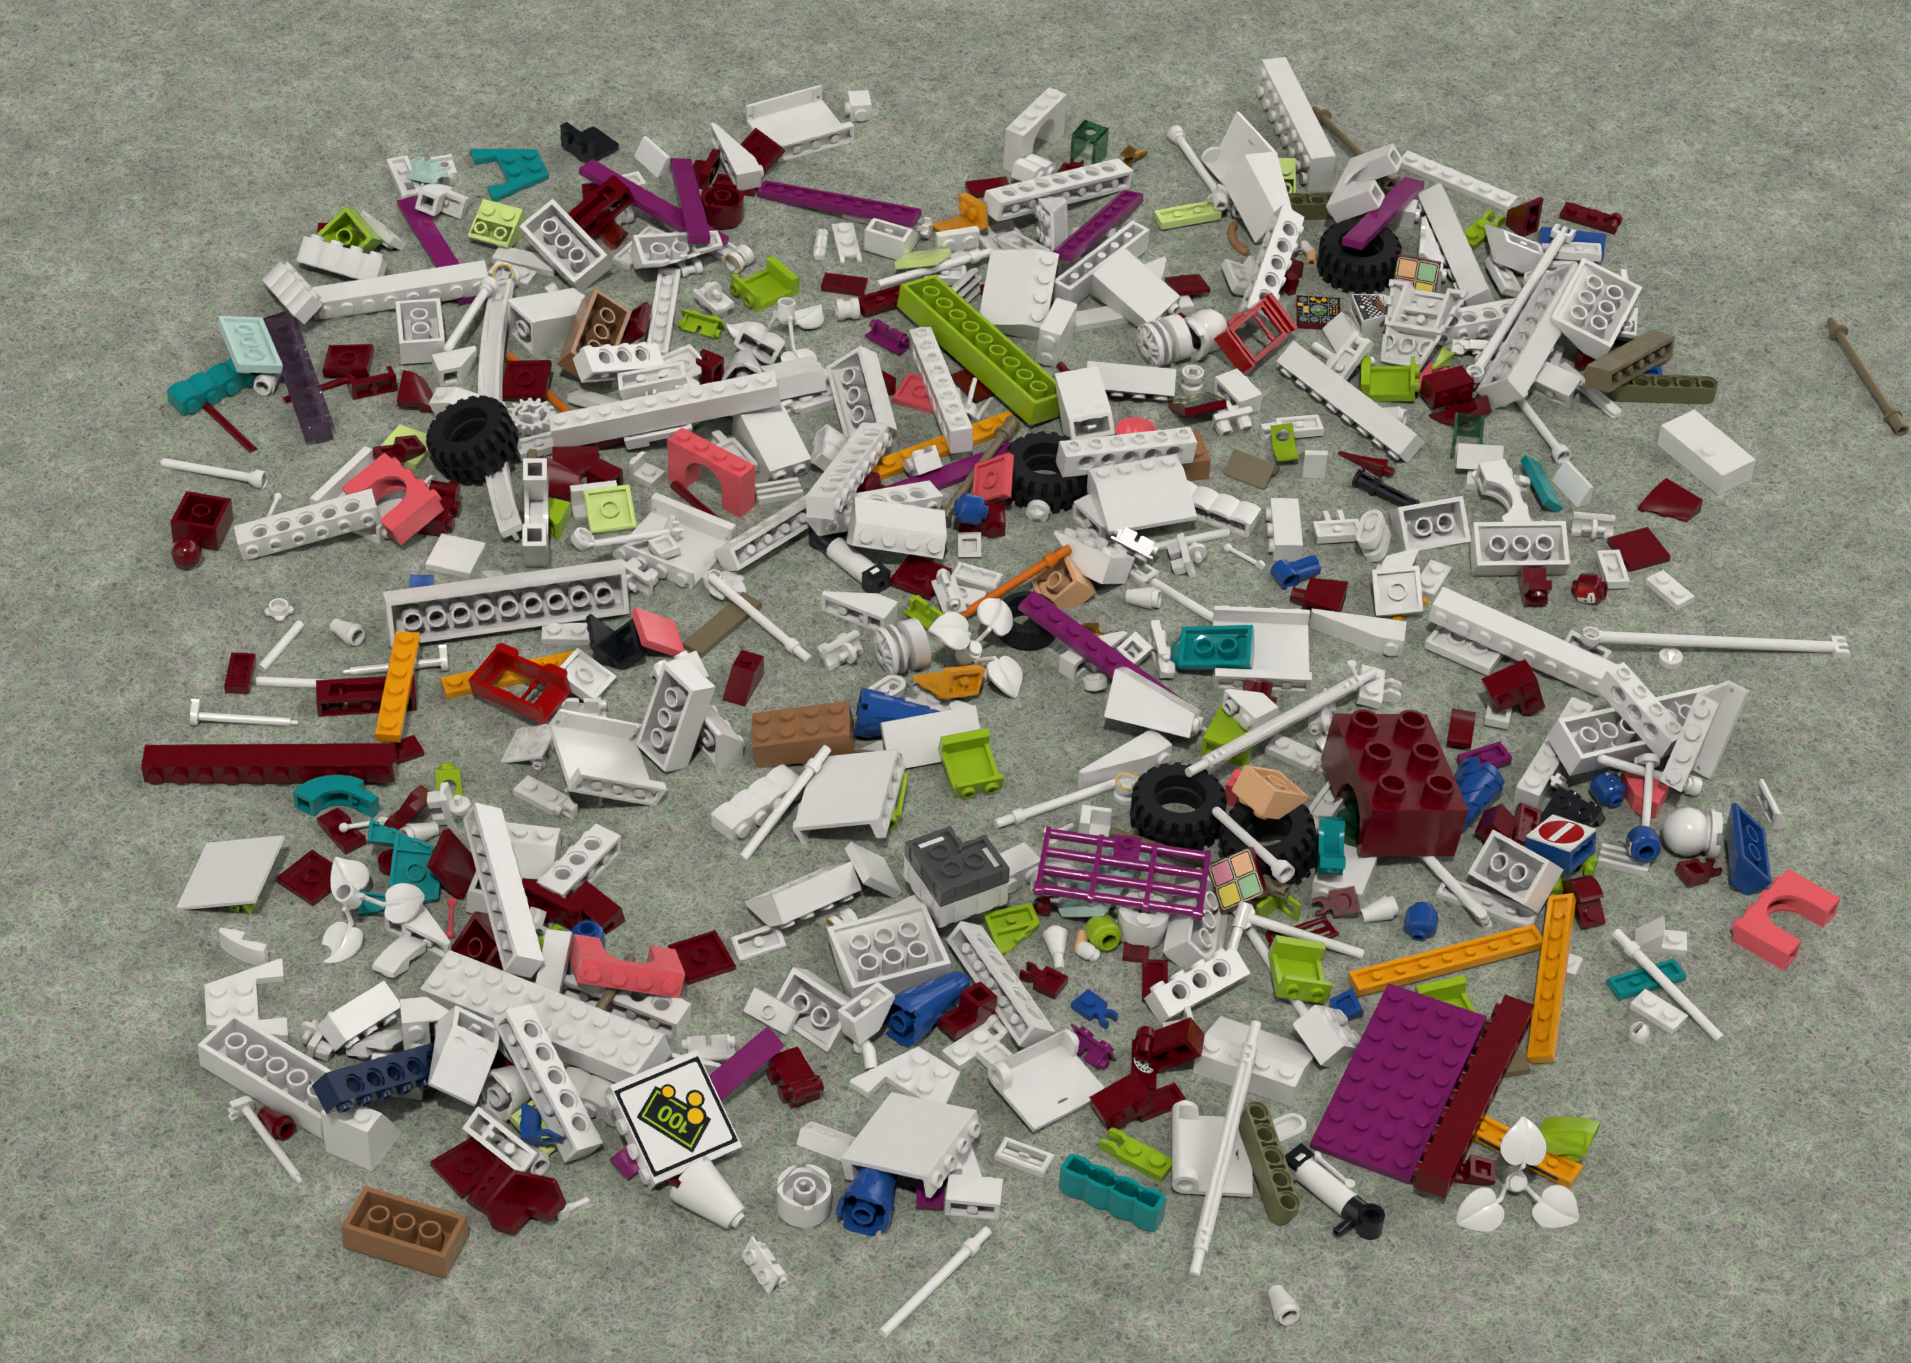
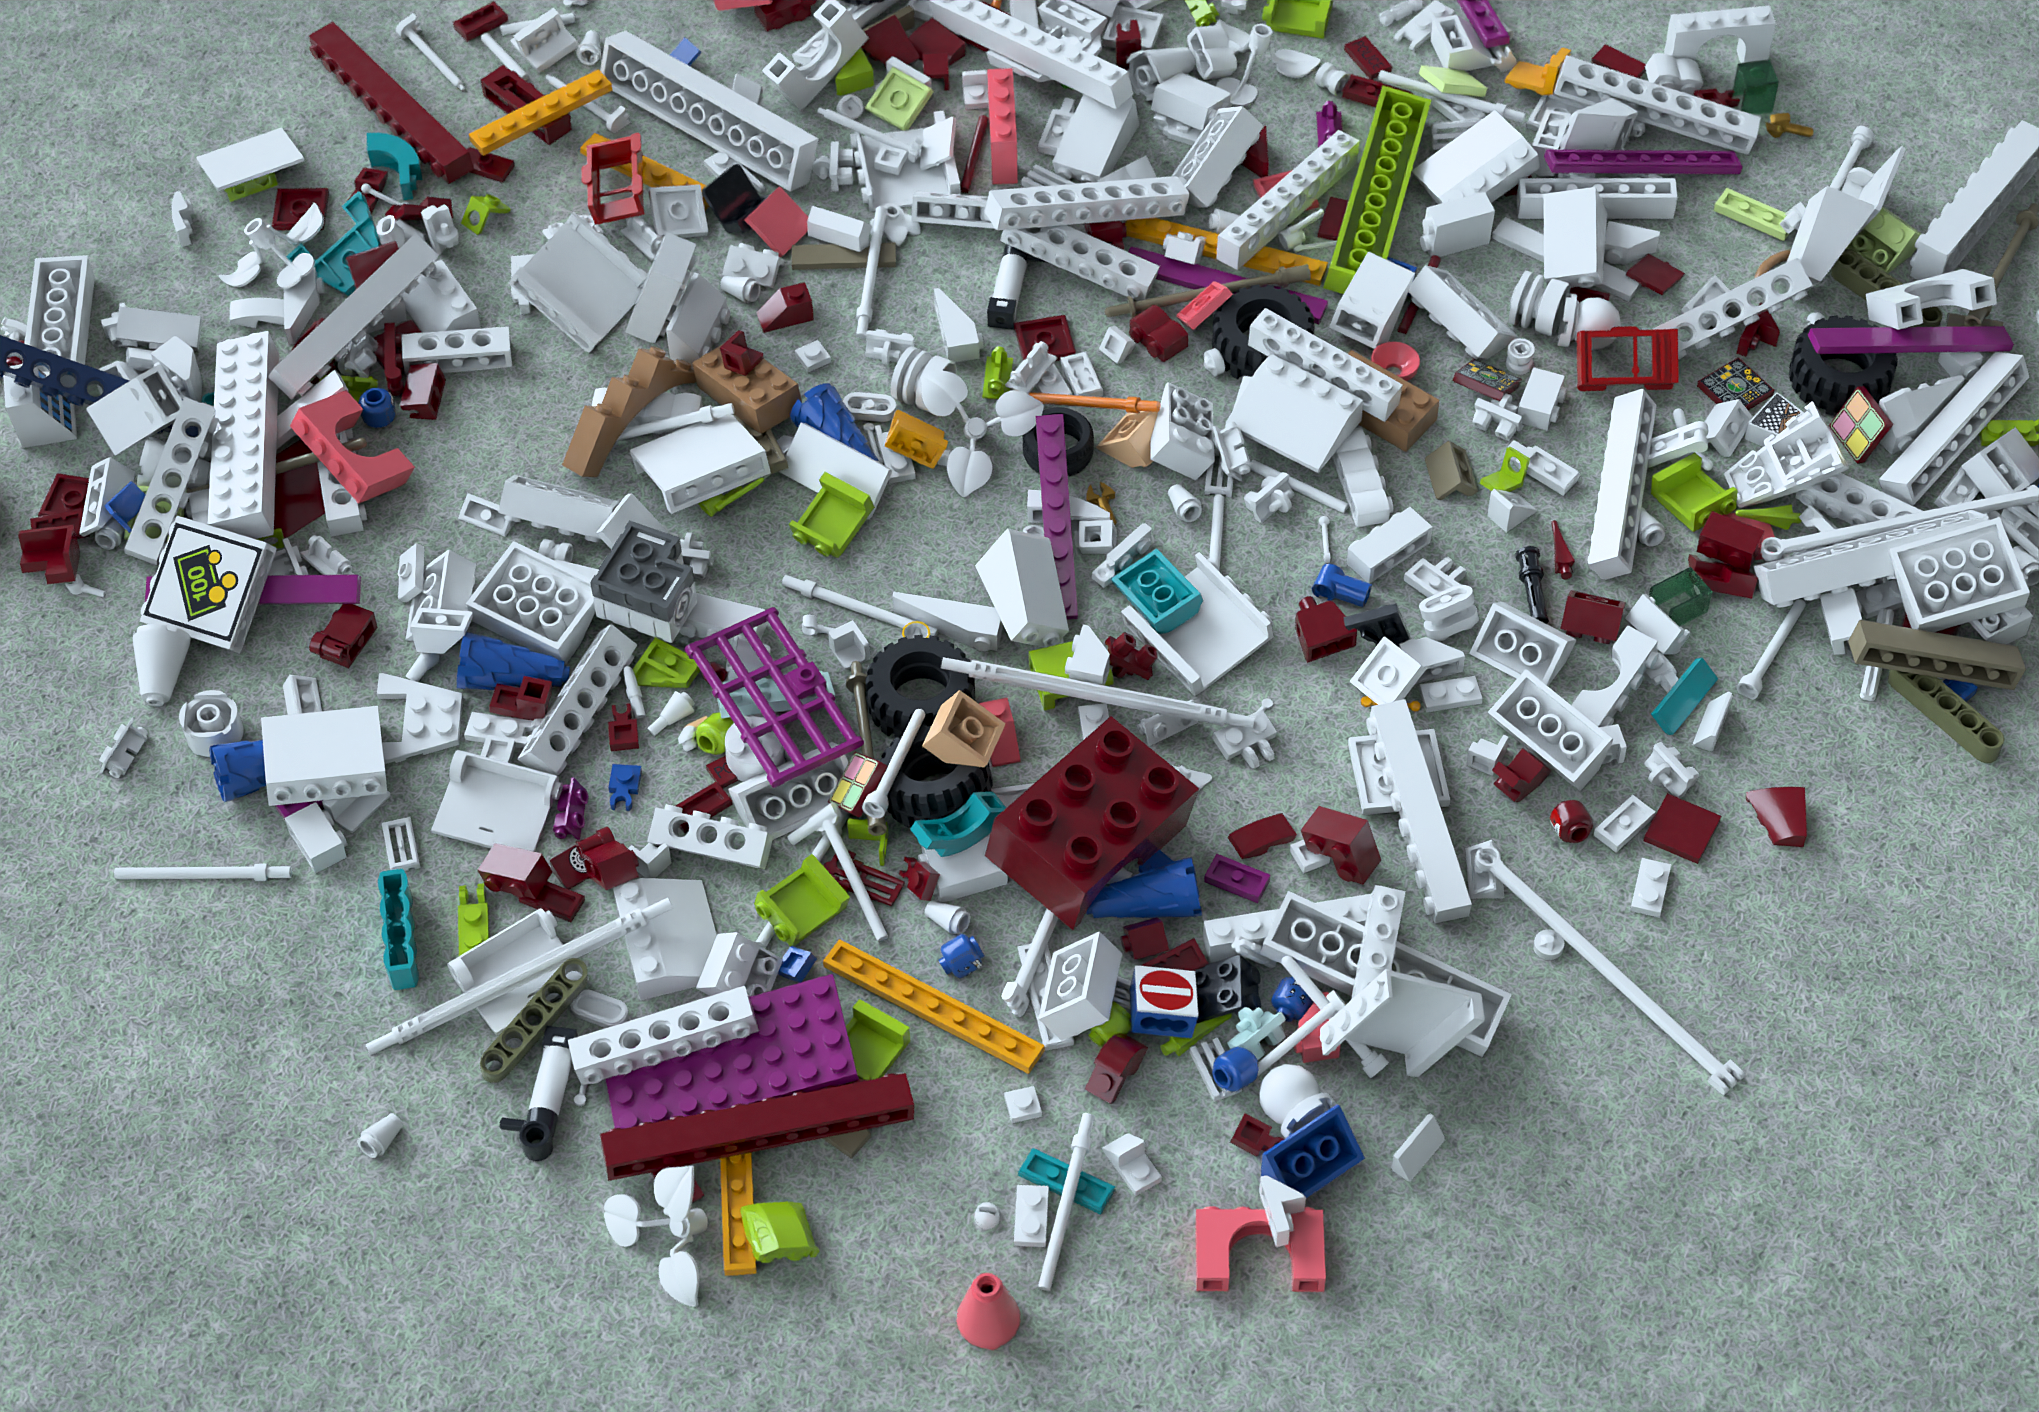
camera: 55 degrees right, 10 degrees up
(239, 995) = (126, 253): white wing -> none
(310, 649) = (544, 41): none -> white bracket
(425, 830) = (390, 231): none -> white piece
(455, 556) = (747, 50): white tile -> none
(687, 510) = (938, 143): none -> white piece
(702, 608) = (838, 229): none -> white piece
(703, 957) = (437, 491): dark red tile -> none
(756, 800) = (625, 397): none -> medium nougat arch
(792, 714) = (738, 356): none -> dark red panel
(800, 693) = (812, 356): none -> white plate
(897, 528) = (1060, 282): white slope -> none
(915, 433) = (1221, 220): none -> white cone
(958, 240) = (1505, 89): white bracket -> none
(970, 509) = (1140, 312): blue head -> none
(1016, 954) = (634, 693): none -> white piece
(1340, 1152) = (649, 1030): none -> white brick
(1360, 566) = (1379, 623): none -> black wing
(1368, 632) = (1320, 698): white slope -> none
(1440, 480) = (1592, 616): none -> dark red slope
(1500, 594) = (1486, 754): none -> white panel
(1551, 979) = (978, 1100): light orange plate -> none
(1619, 819) = (1256, 1026): none -> light aqua hips
(1706, 452) = (1888, 798): white brick -> none
(1723, 1067) = (988, 1313): none -> coral cone
(1772, 882) = (1279, 1203): none -> white slope

